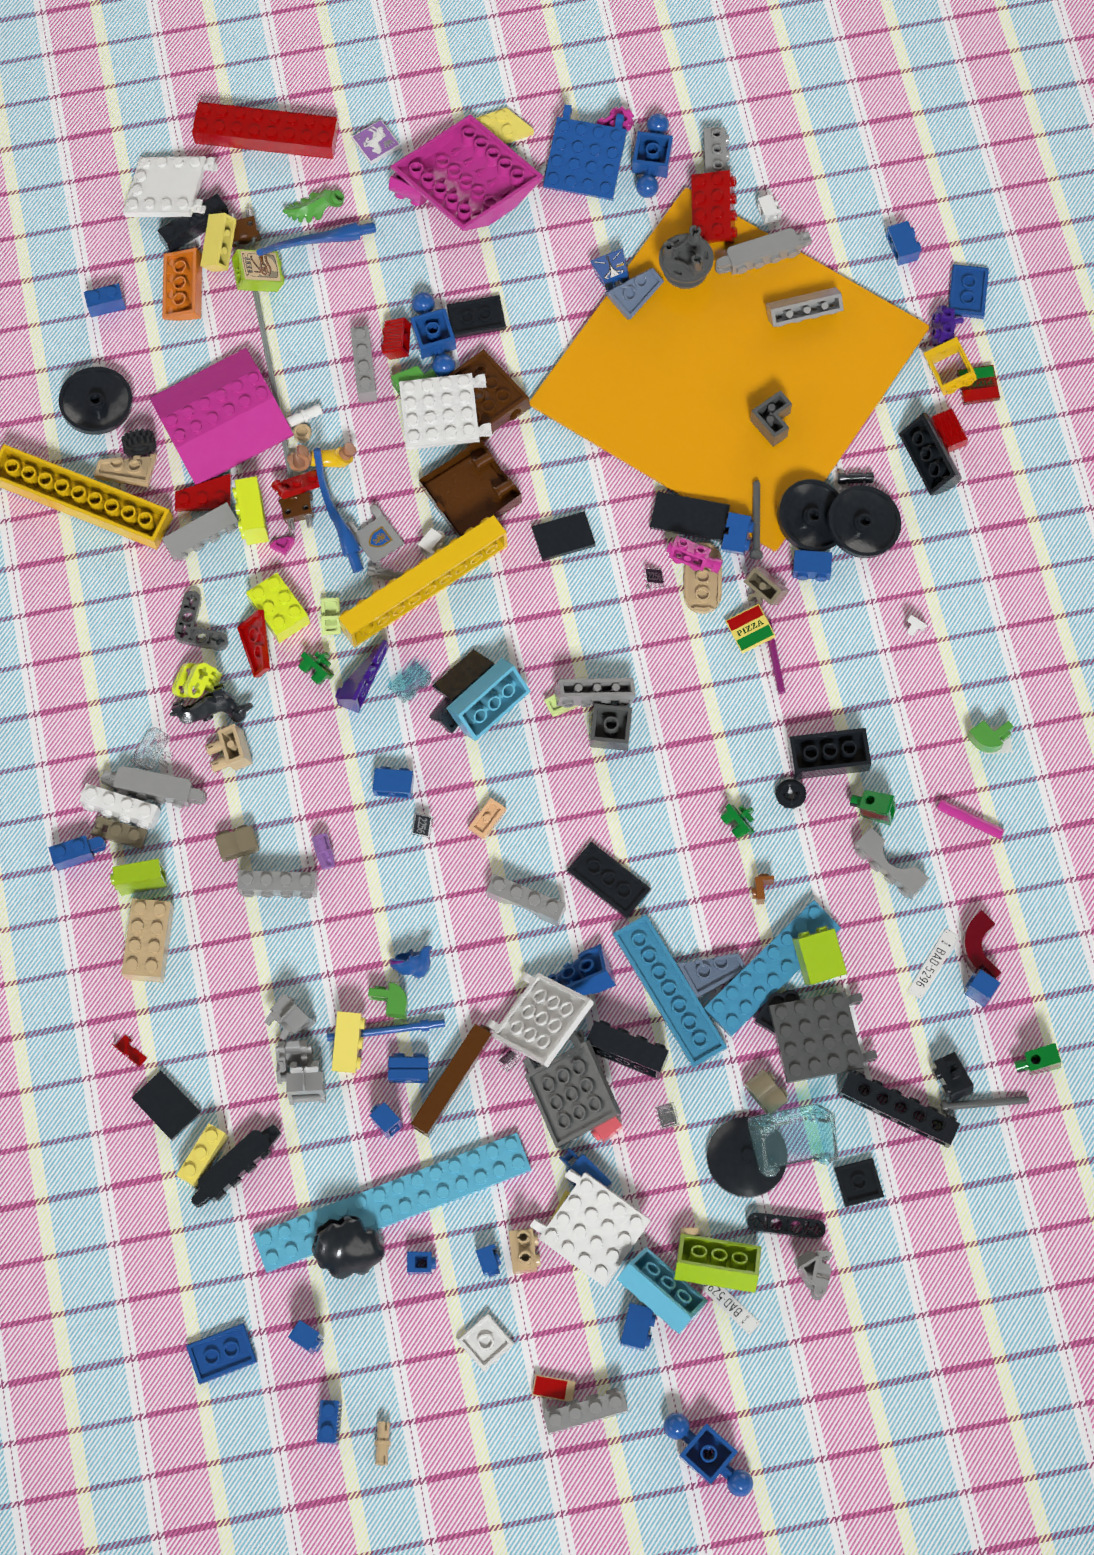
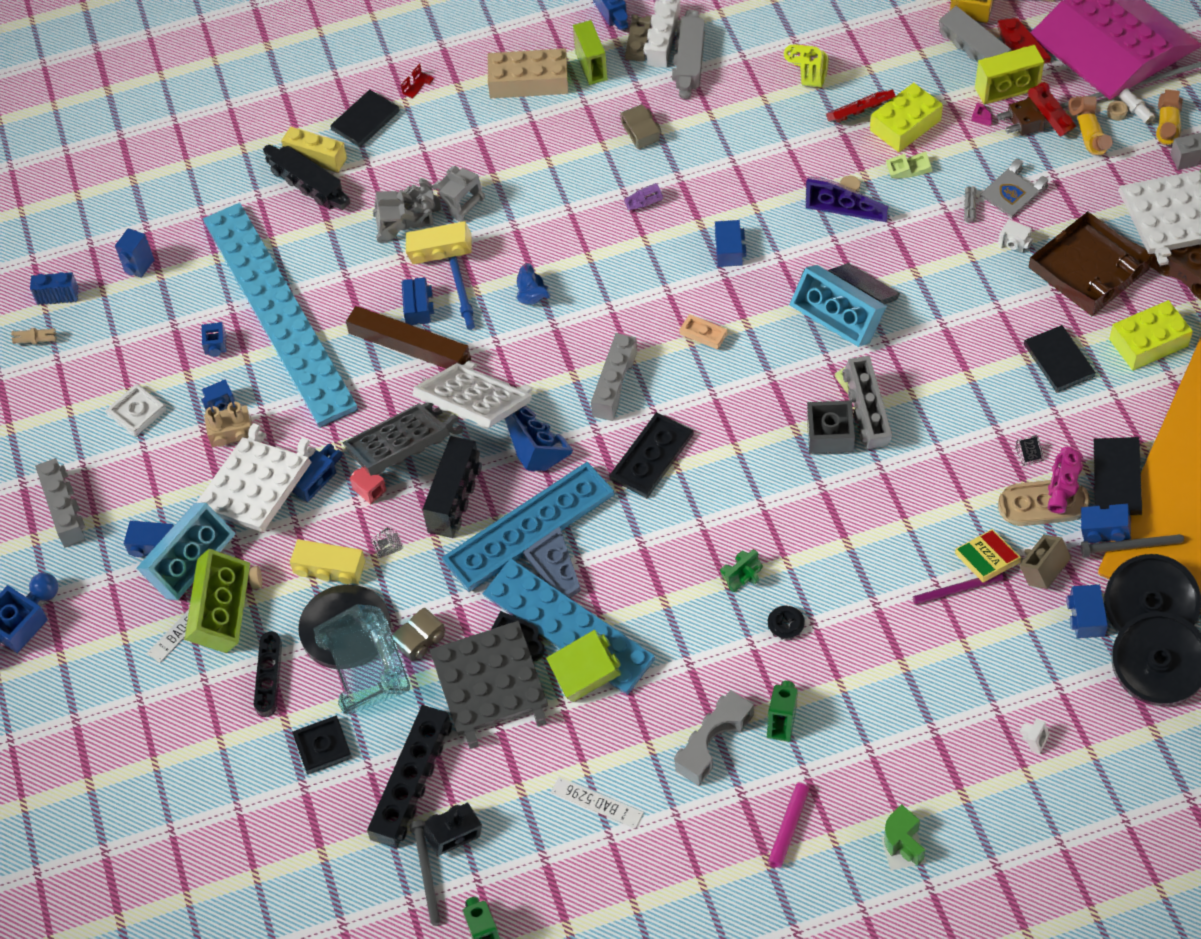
camera: 85 degrees right, 15 degrees down
(151, 750) = (726, 41): clear brick -> none
(192, 631) = (864, 58): dark grey beam -> none
(211, 704) = (786, 79): black animal -> none
(221, 1353) = (124, 199): blue tile -> none
(234, 747) = (740, 104): tan brick -> none
(277, 884) = (601, 164): light grey brick -> none
(310, 661) = (849, 159): green hips -> none
(325, 393) = (1169, 117): none -> piece
(343, 670) = (851, 182): none -> tan tile
(347, 1247) = (224, 271): black piece -> none
(348, 542) = (998, 160): blue animal -> none
(385, 1120) = (357, 284): blue brick -> none
(395, 997) = (490, 279): bright green brick -> none
(410, 682) = (848, 243): clear light blue bracket -> none
(422, 825) = (687, 277): slope -> none
(423, 581) = (967, 231): yellow brick -> none
(553, 1388) = (88, 475): red tile -> none
(556, 460) = (1150, 335): none -> neon yellow brick
(684, 1167) = (327, 562): none -> light yellow brick
(758, 889) = (662, 600): dark orange bracket -> none
(814, 1272) = (211, 701): light grey piece -> none
(848, 752) = (841, 652): black brick -> none
(972, 945) = (623, 839): dark red arch -> none
(981, 987) = (564, 848): blue brick -> none

